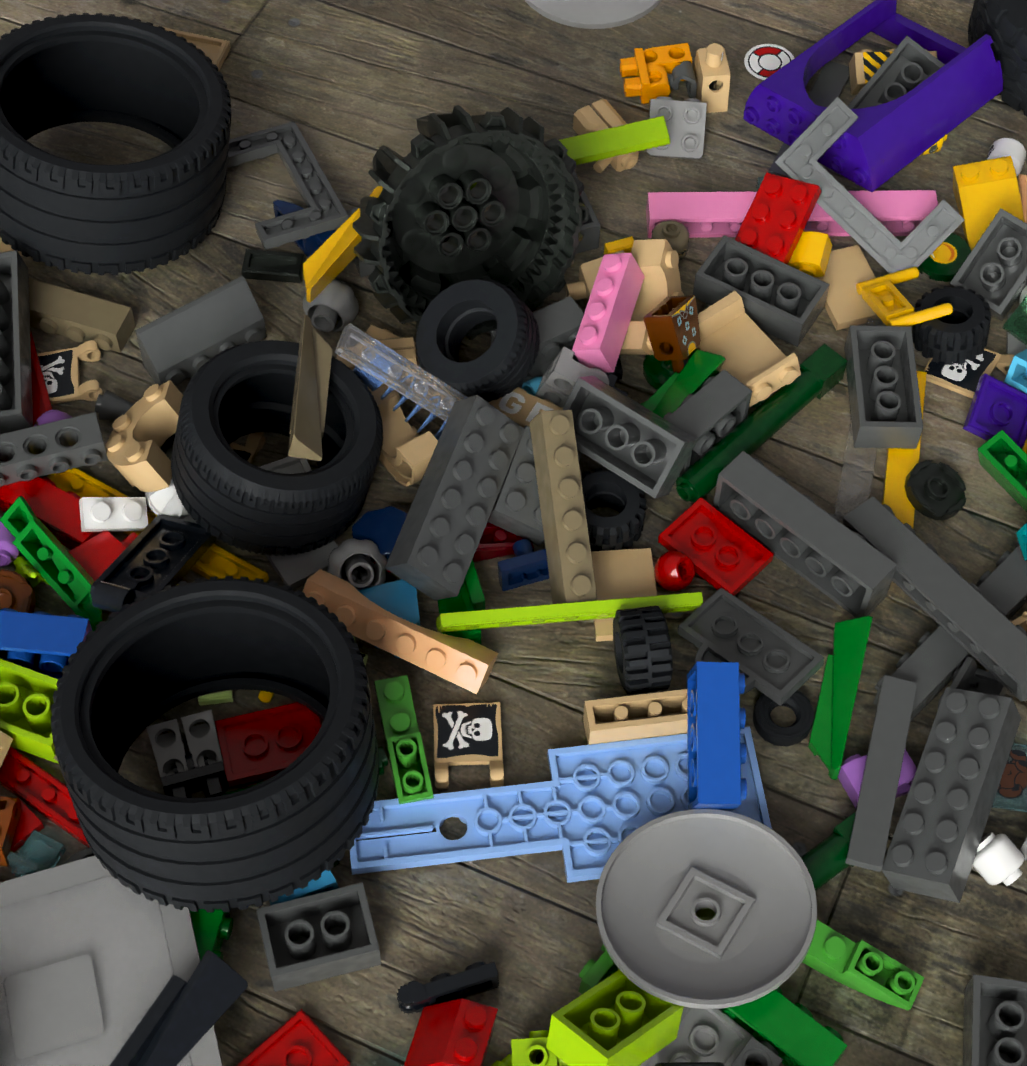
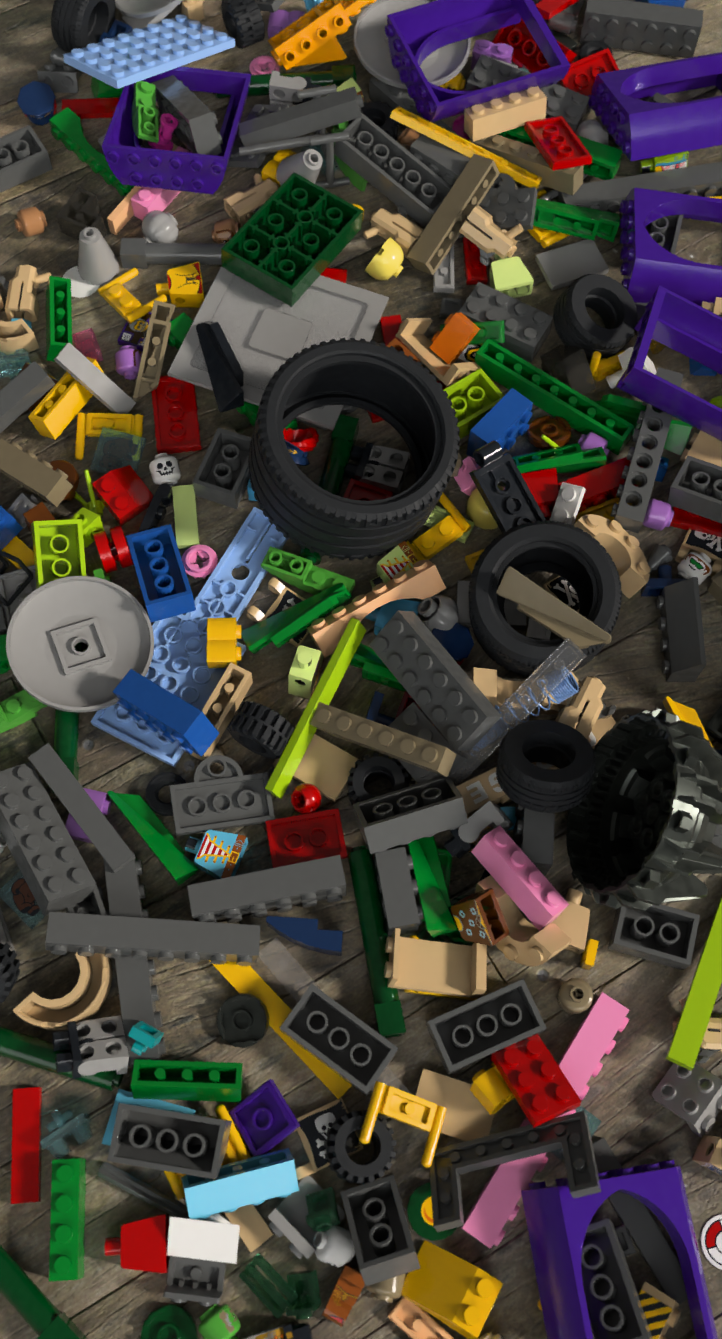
camera: 125 degrees right, 10 degrees up
(107, 365) = (695, 566): none -> white head
(145, 376) = (655, 585): none -> dark blue tile
(375, 1022) = (165, 469): none -> white head
(421, 952) = (185, 516): none -> yellowish green tile
(472, 872) = (206, 554): none -> bright pink gear
(477, 712) = (295, 619): none -> green wedge
(527, 663) = (306, 668): none -> yellowish green torso
(533, 900) = (161, 573): none -> blue brick
(542, 989) = (113, 549): none -> red wheel
(569, 764) = (222, 642): none -> yellow brick
(803, 612) = (218, 852): none -> torso
(805, 473) = (307, 935): none -> dark blue slope

